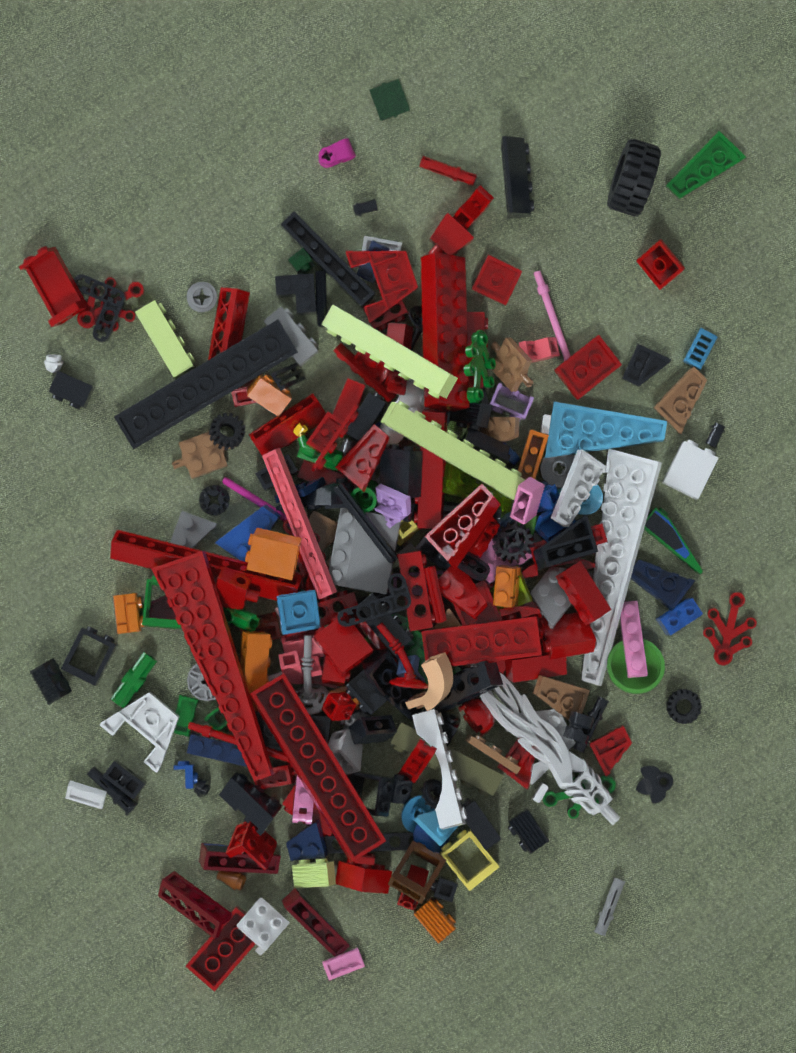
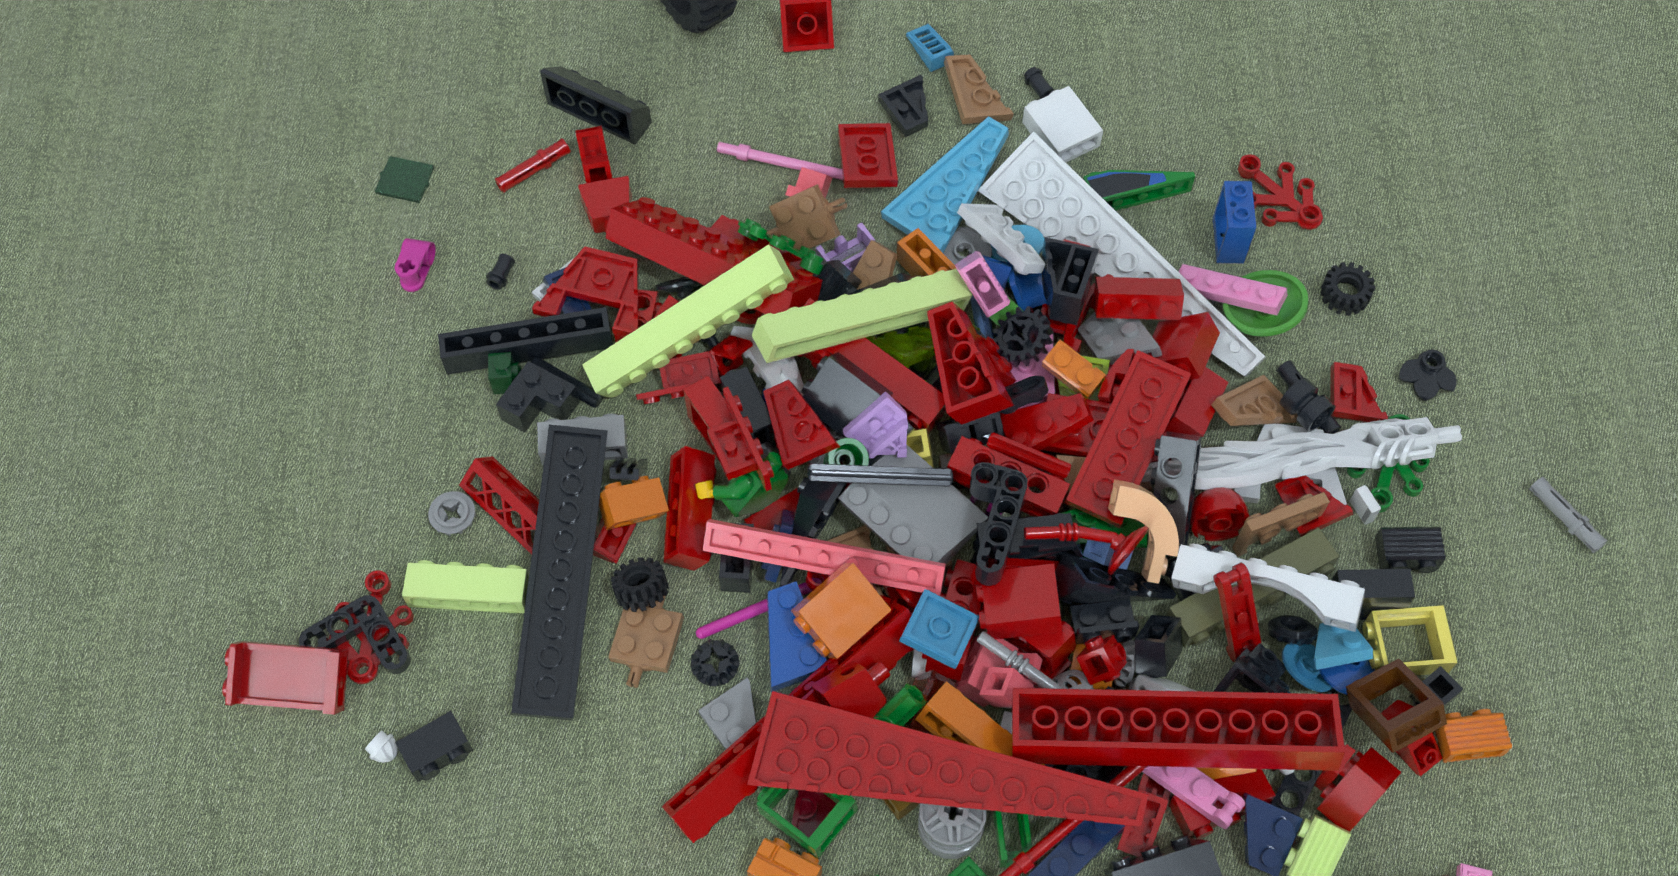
camera: 55 degrees left, 25 degrees down
(497, 280) = (695, 188): red plate -> none
(545, 425) = (898, 230): white tile -> none
(661, 584) = (1181, 227): dark blue wing -> none

